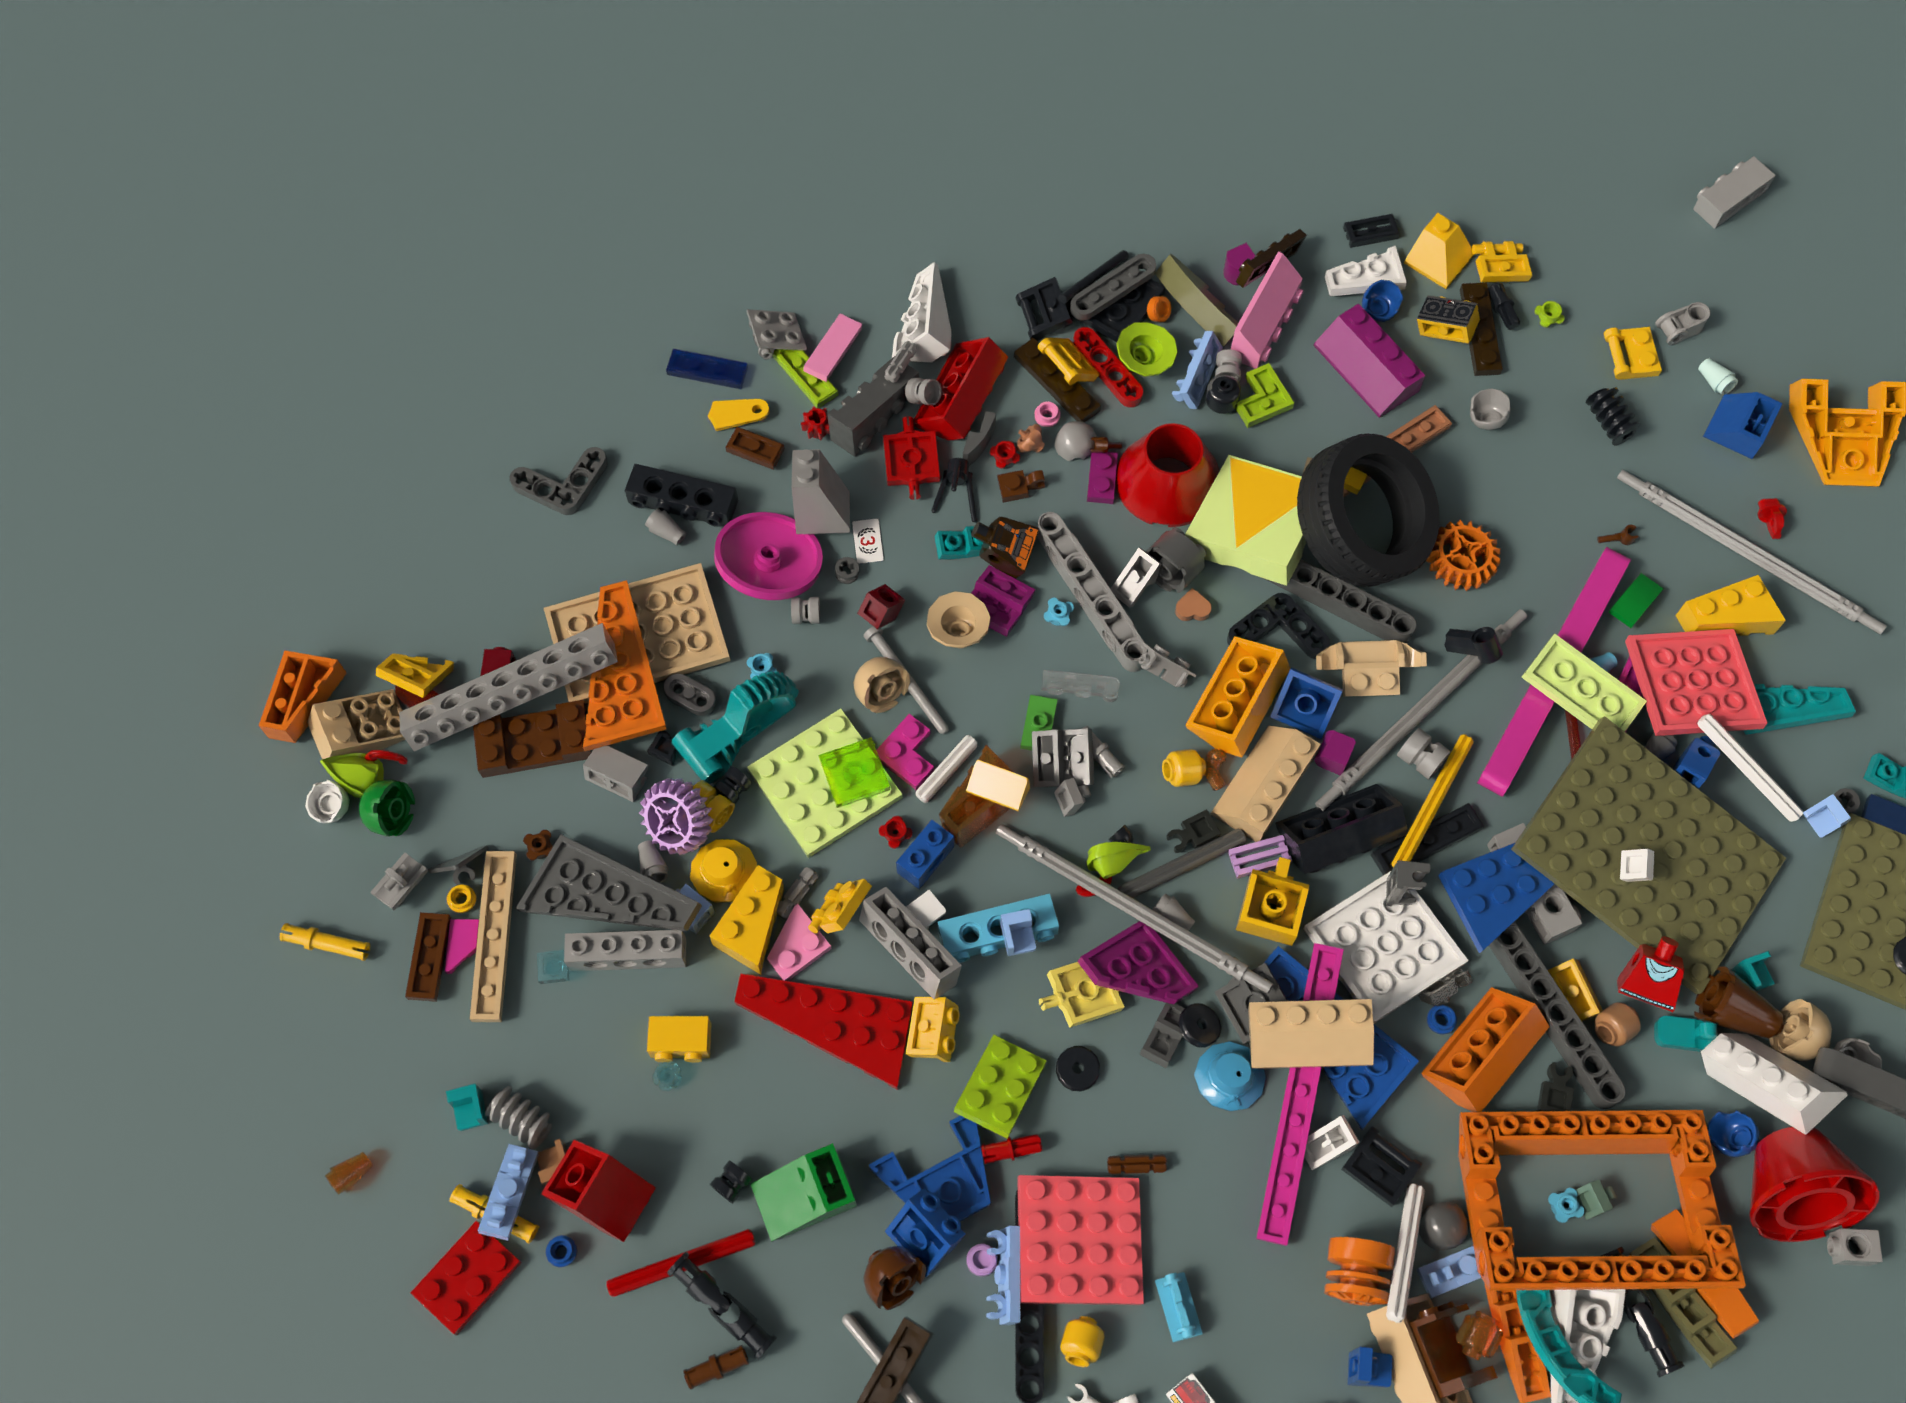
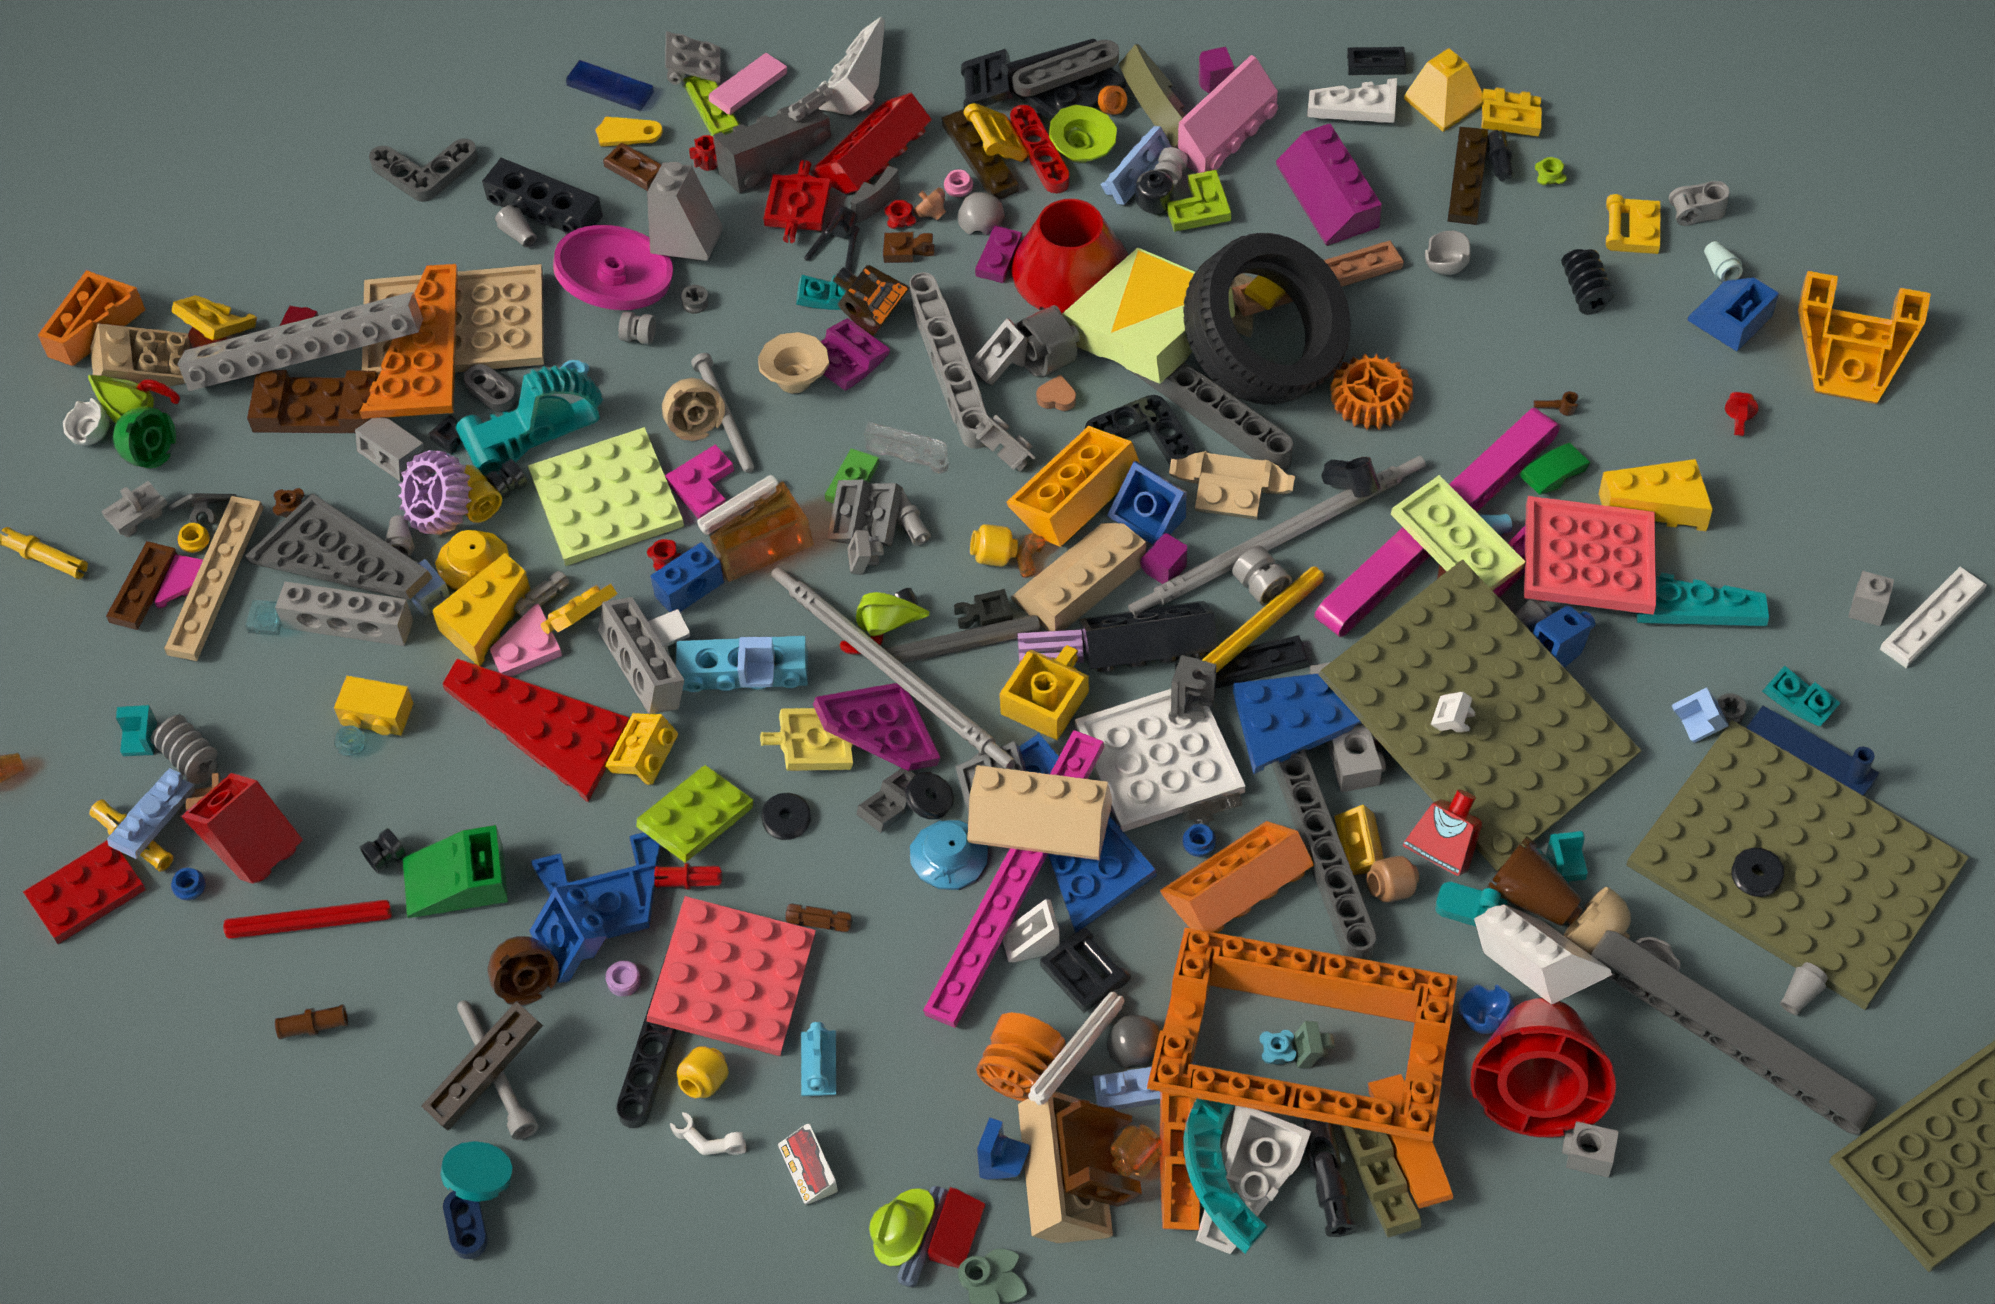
camera: 15 degrees right, 10 degrees down
(705, 1290) = (321, 943): black piece -> none
(854, 772) = (636, 486): clear neon green plate -> none
(867, 541) = (727, 276): white sticker -> none
(881, 606) = (716, 335): dark red brick -> none
(923, 391) = (827, 136): light grey wheel -> none
(998, 785) = (779, 516): slope -> none
(1006, 1275) = (641, 992): light blue plate -> none
(1058, 619) = (910, 381): medium azure plate -> none
(1102, 445) = (1007, 220): reddish brown hand -> none
(1172, 910) = (936, 678): light grey cone -> none
(1260, 264) = (1272, 58): dark brown plate -> none
(1382, 300) = (1361, 127): blue hair -> none
(1448, 319) = (1429, 156): brick -> none
(1555, 1094) = (1304, 933): pearl dark grey plate -> none
(1733, 191) = (1802, 81): light grey brick -> none
(1750, 767) = (1623, 648): white axle -> none
(1752, 552) = (1706, 443): light grey axle -> none

